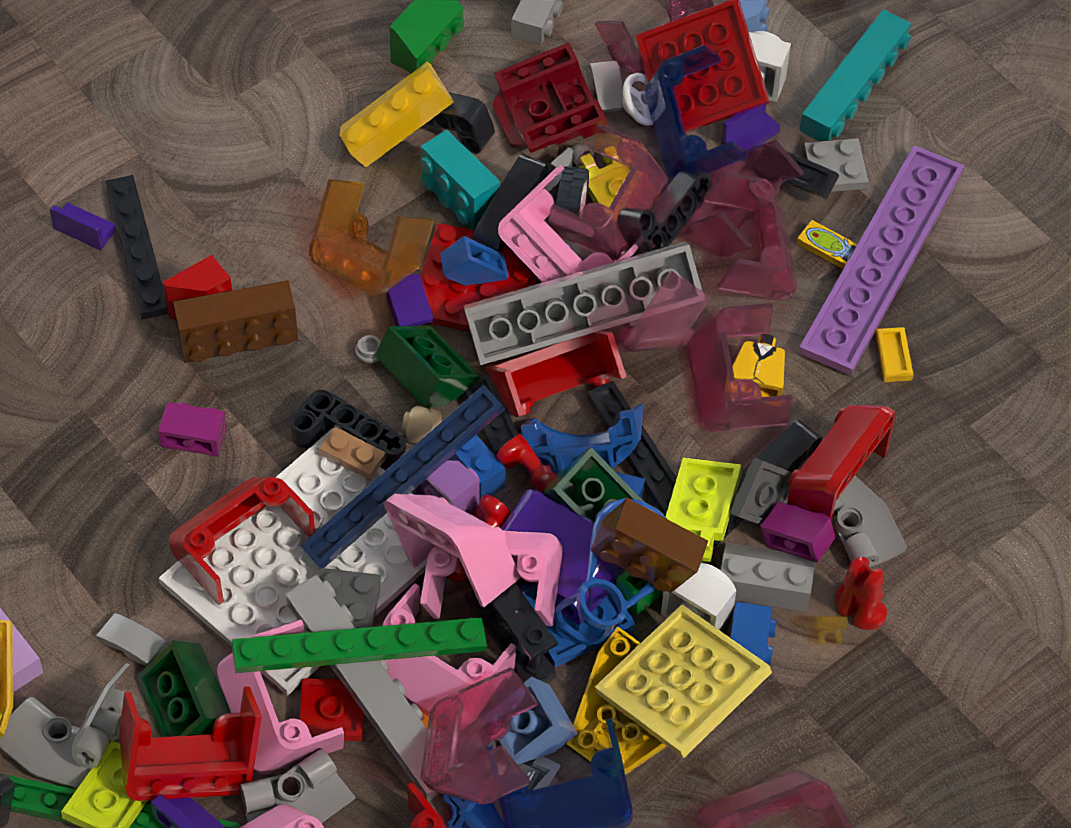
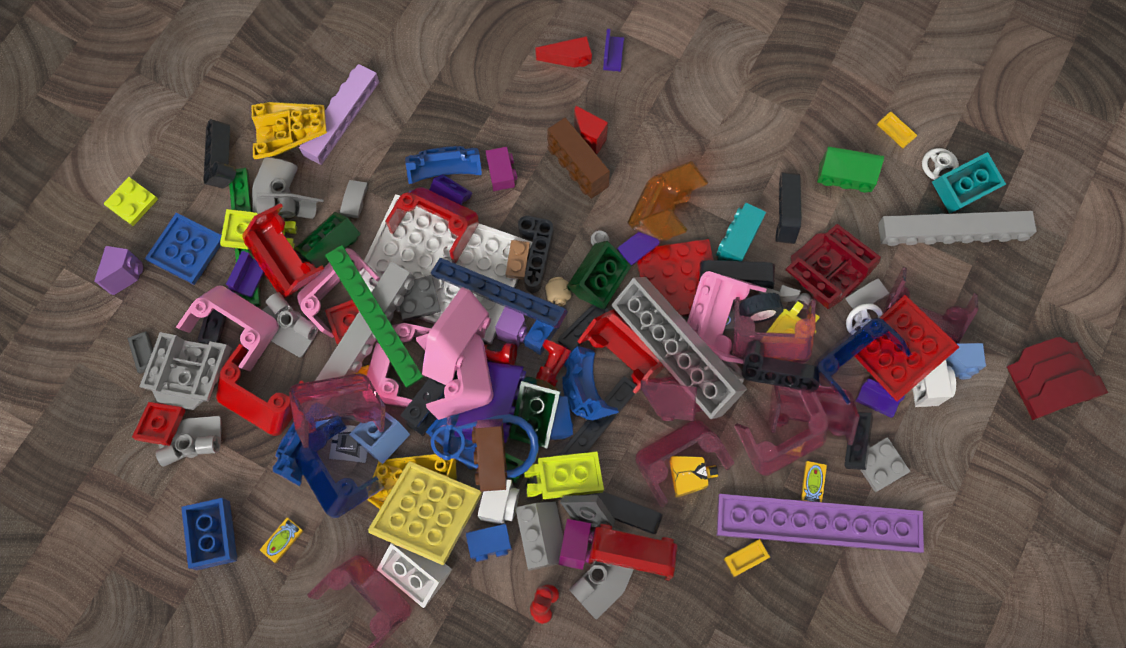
camera: 70 degrees right, 15 degrees up
(53, 278) = (567, 53): none -> red slope
(137, 247) = (616, 83): black plate -> none
(139, 491) = (443, 161): none -> blue windscreen
(189, 504) = (449, 189): none -> dark purple panel
(395, 115) = (769, 179): yellow slope -> none
(473, 263) = (681, 270): blue slope -> none
(751, 746) = (413, 573): none -> white slope
(829, 624) = (519, 588): clear yellow tile -> none
(855, 77) = (962, 451): teal brick -> none

